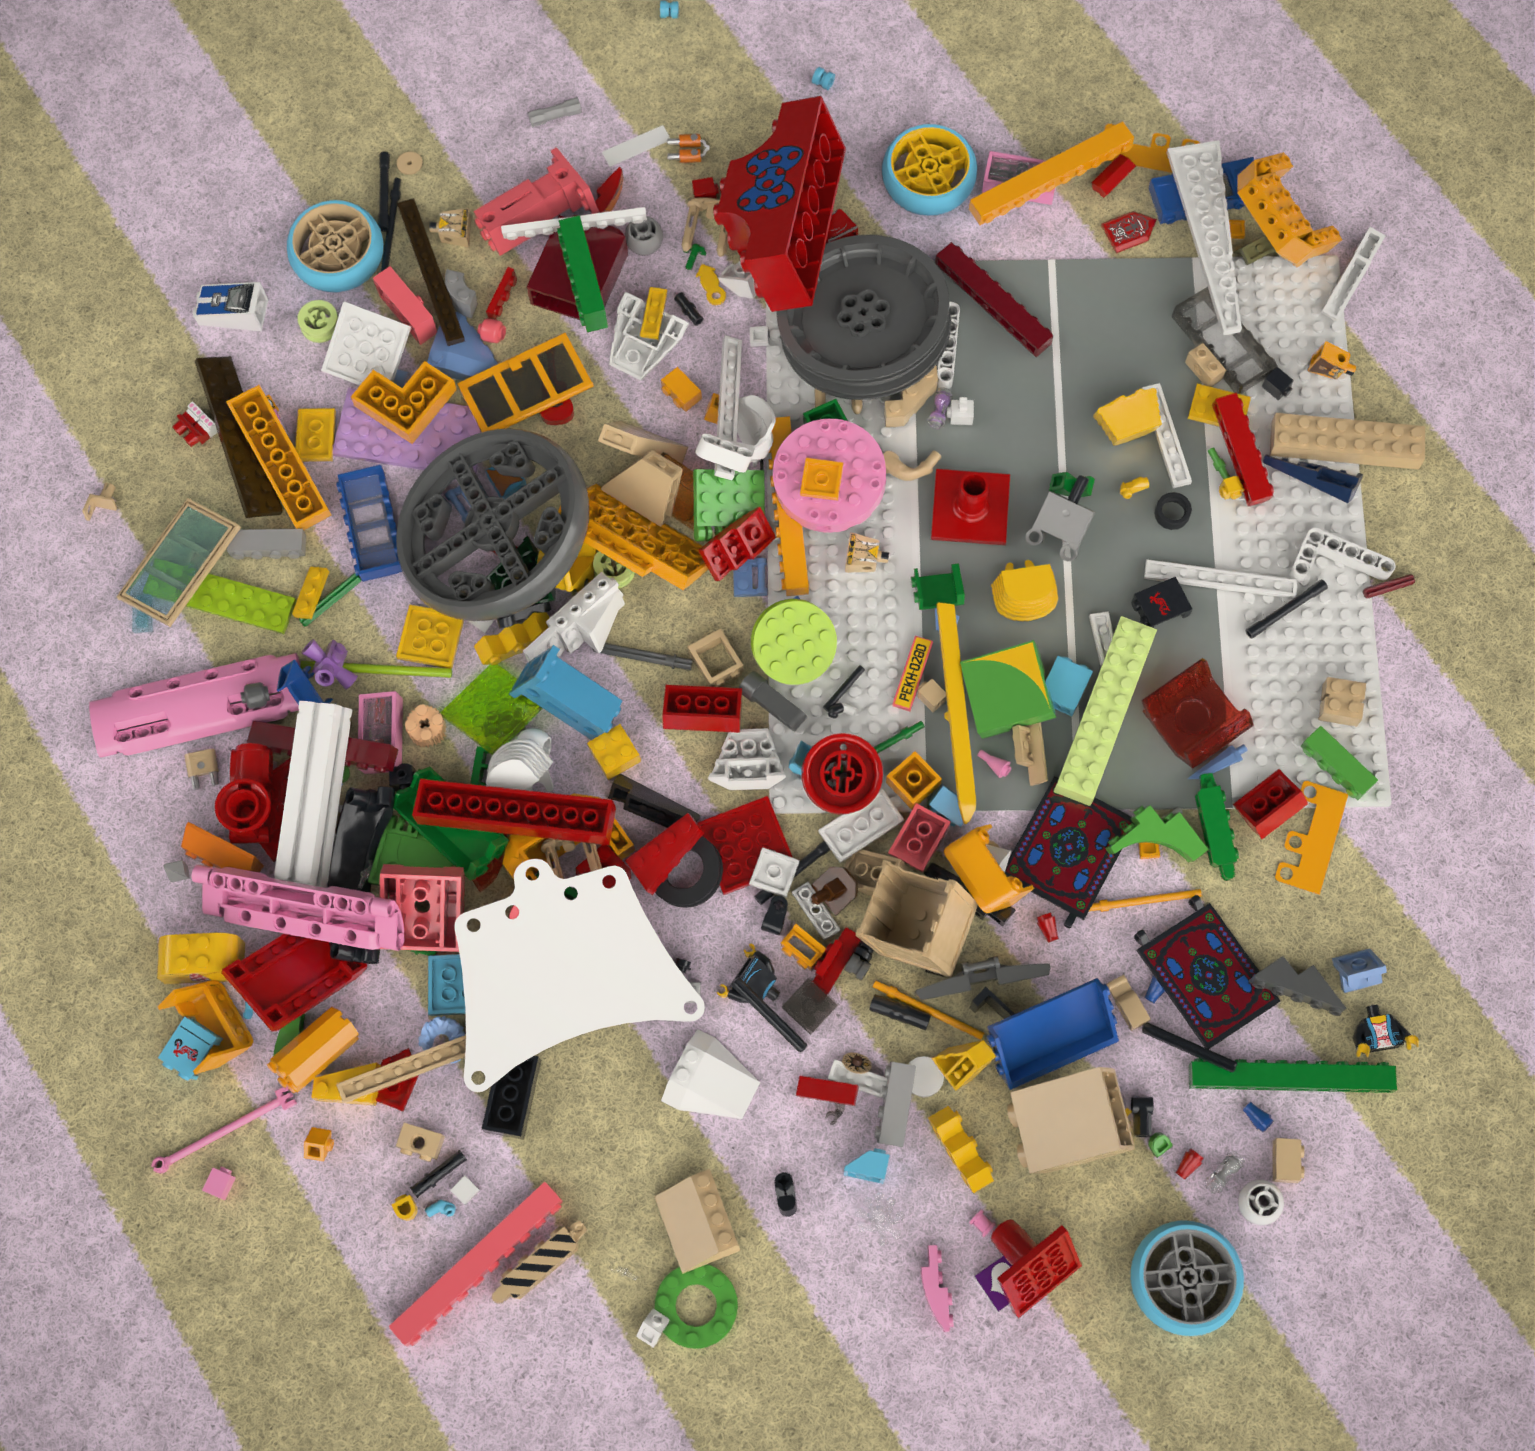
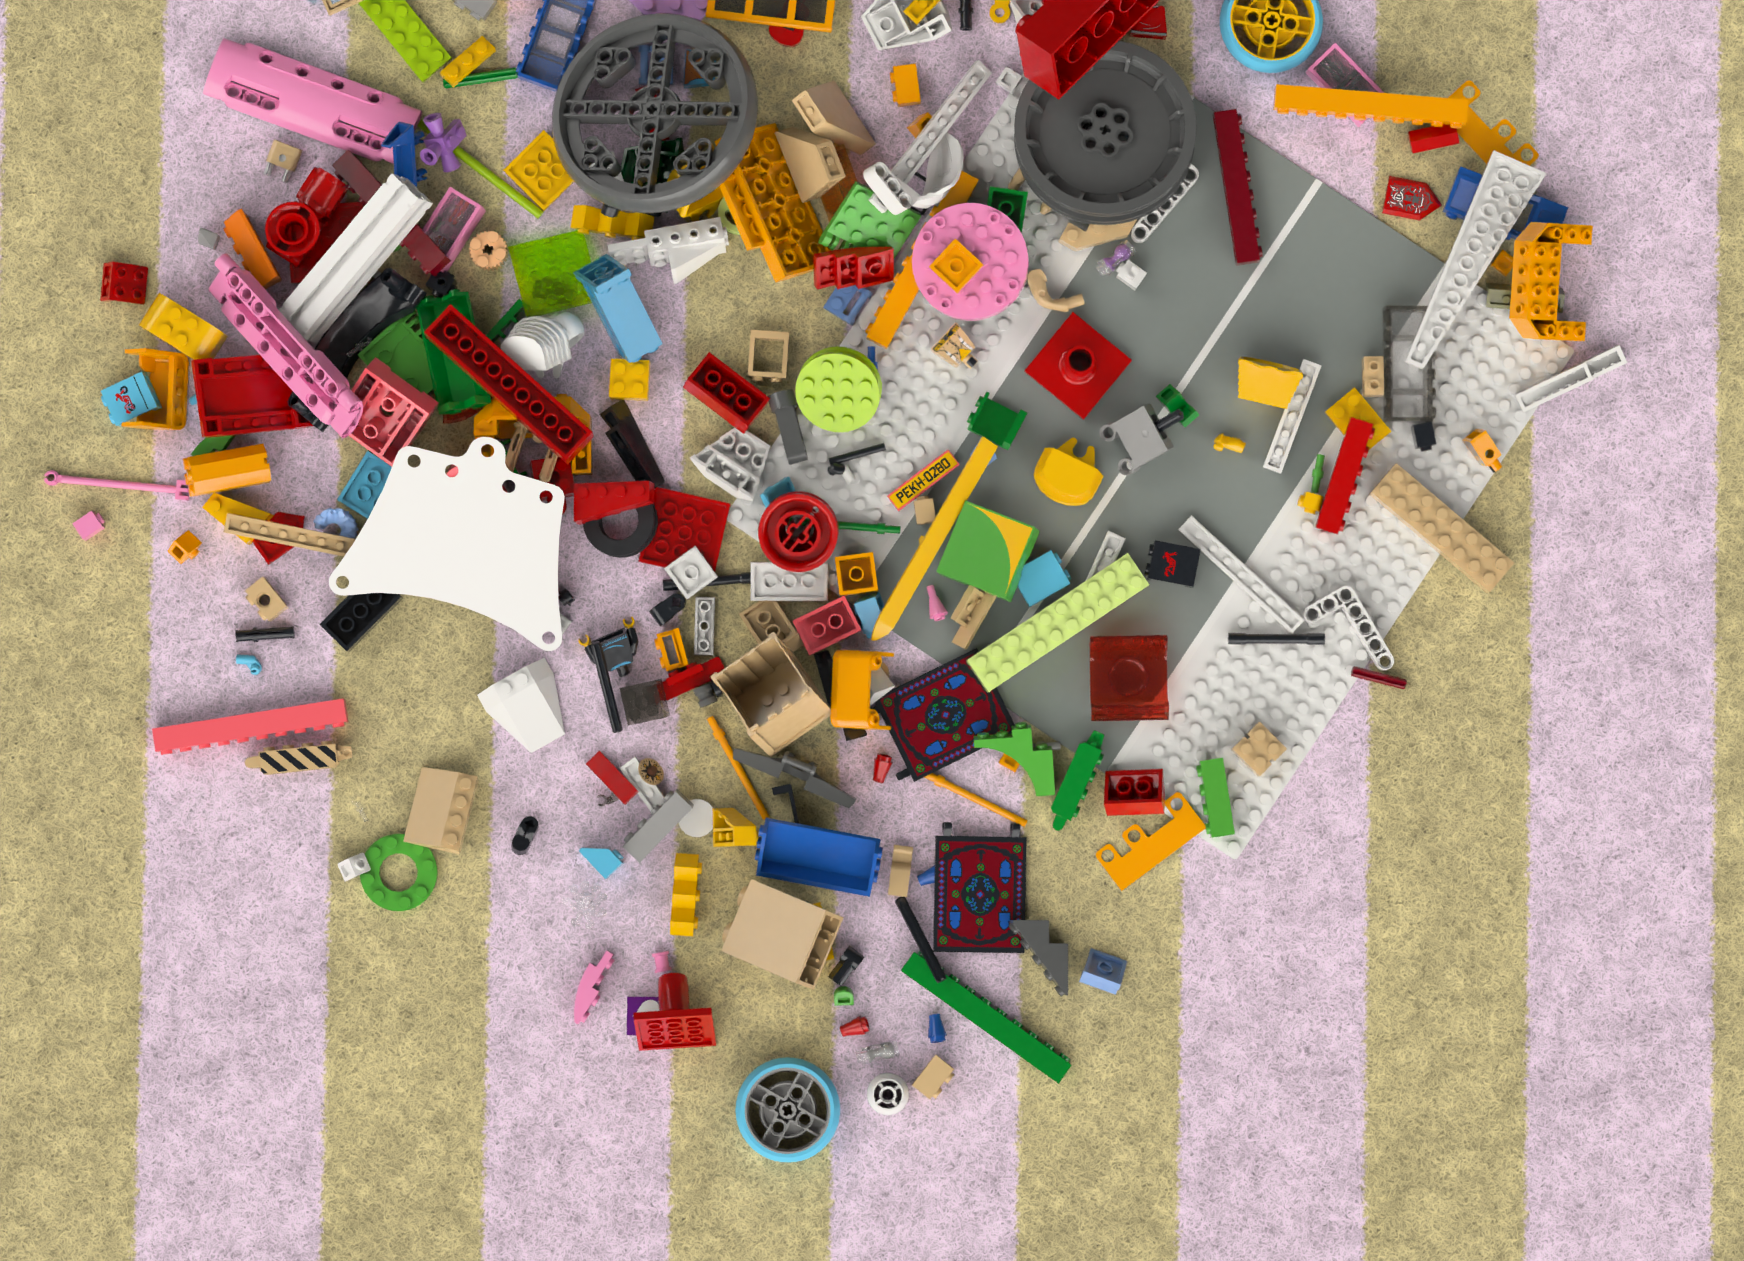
camera: 30 degrees right, 15 degrees up
(124, 955) = (124, 283): none -> red bracket
(255, 695) = (362, 131): dark grey head -> none
(405, 1207) = (222, 644): yellow plate -> none
(464, 1190) = (277, 661): white tile -> none
(647, 656) = (714, 313): dark grey axle -> none
(835, 888) = (731, 619): reddish brown piece -> none
(900, 1012) = (713, 754): black axle -> none
(1176, 498) = (1231, 485): black tyre -> none
(1226, 758) = (1128, 730): medium blue bar -> none
(1333, 482) = (1401, 556): dark blue wedge -> none
(1381, 1033) = (1080, 1032): torso -> none

